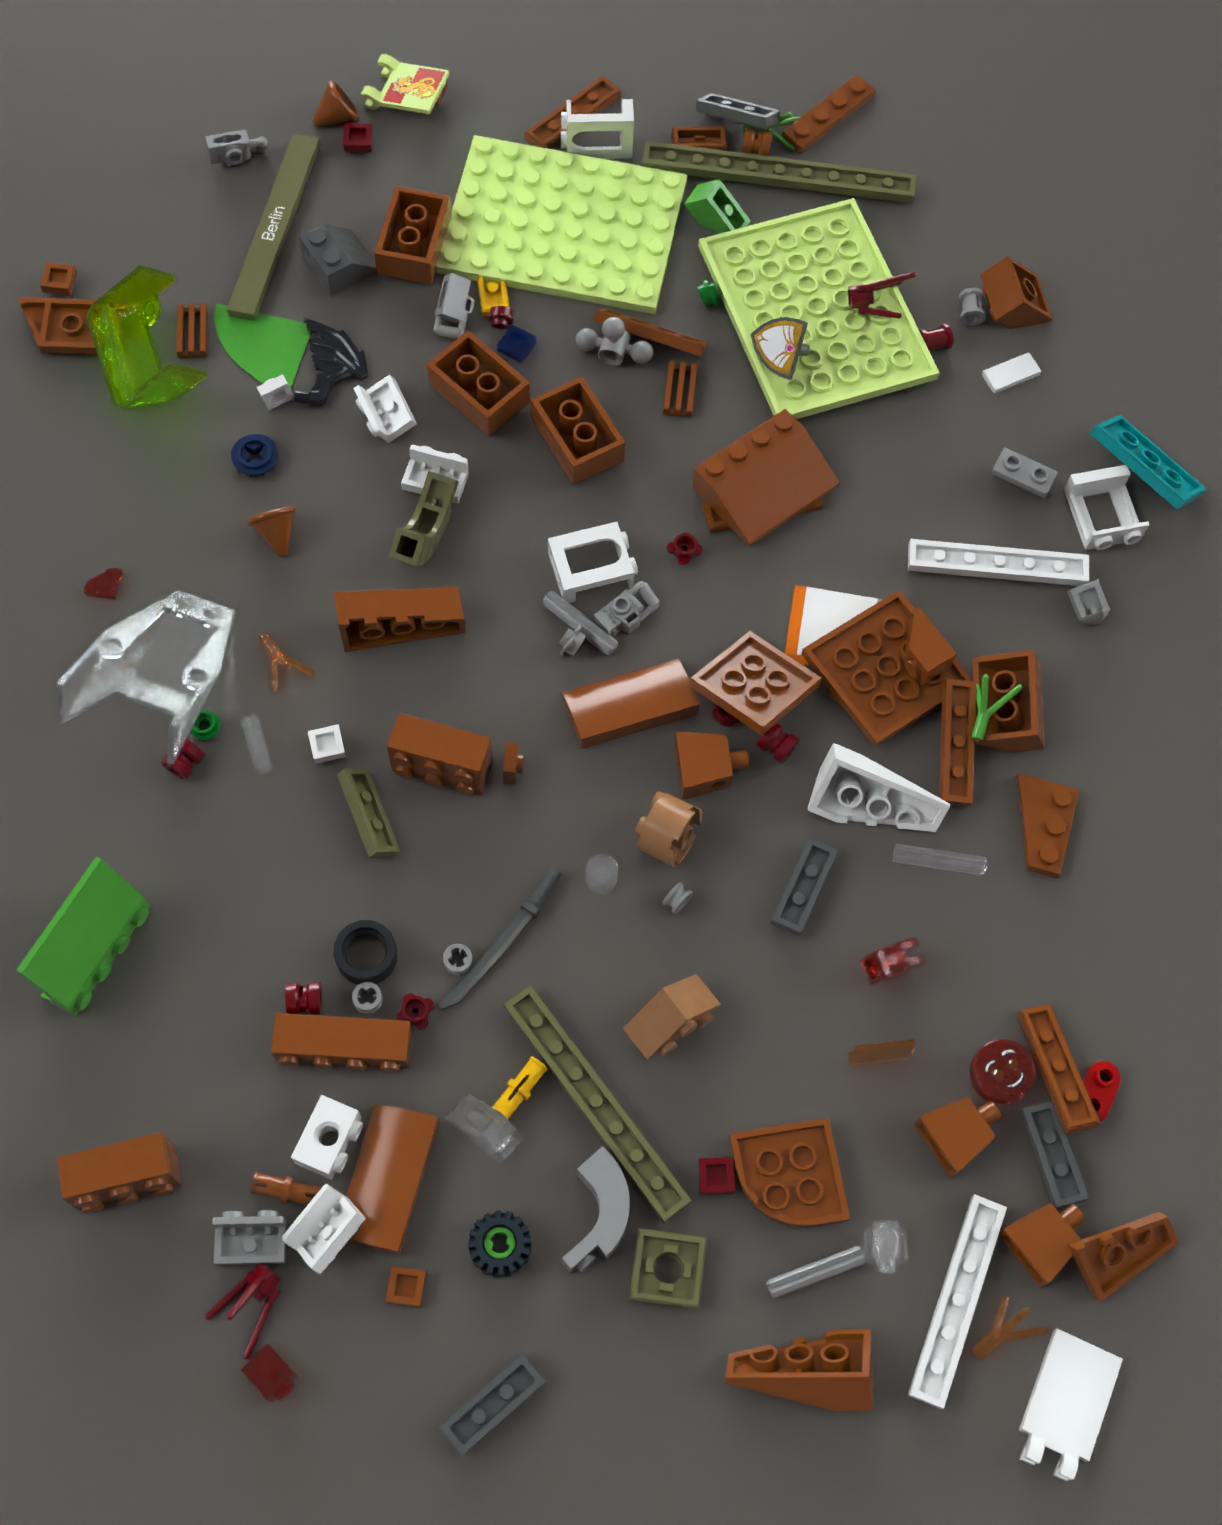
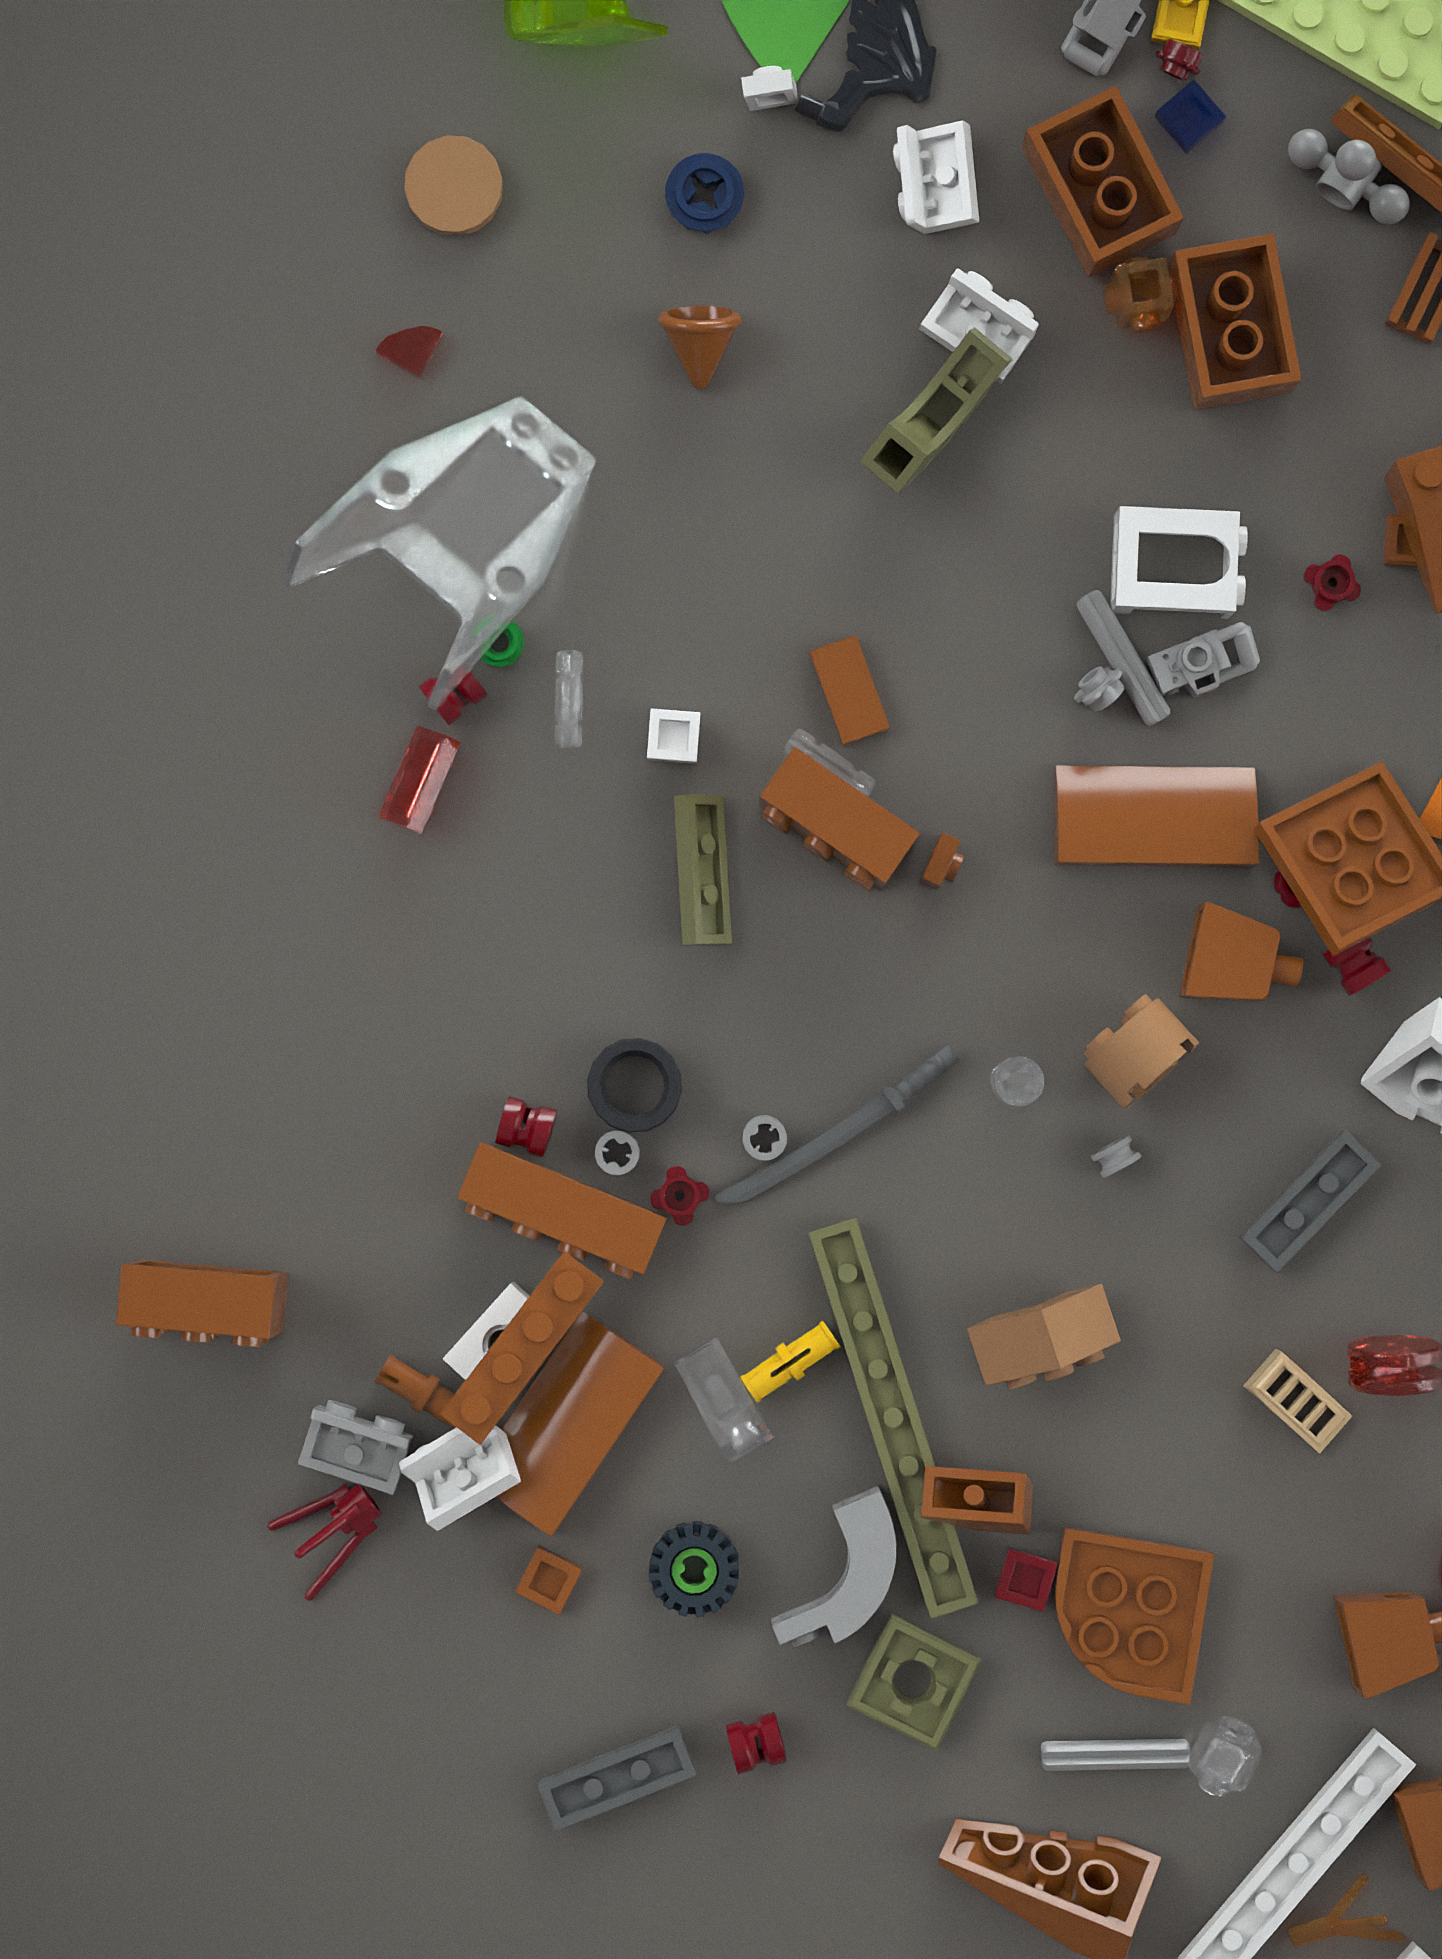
camera: 25 degrees right, 20 degrees up
(84, 938) = (240, 944): bright green piece -> none
(106, 493) = (453, 185): none -> medium nougat tile
(176, 815) = (419, 779): none -> clear red plate
(270, 1374) = (334, 1634): clear red bracket -> none
(277, 656) = (639, 566): clear orange plant -> none
(340, 1131) = (521, 1348): none -> dark orange plate
(397, 616) = (848, 561): dark orange wedge -> none
(425, 688) = (849, 690): none -> dark orange tile
(520, 431) = (1145, 278): none -> clear orange brick
(572, 1351) = (744, 1744): none -> dark red wheel
(668, 1131) = (978, 1499): none -> dark orange slope
(837, 992) = (1269, 1372): none -> tan slope
(881, 1052) = (1325, 1491): clear orange piece -> none

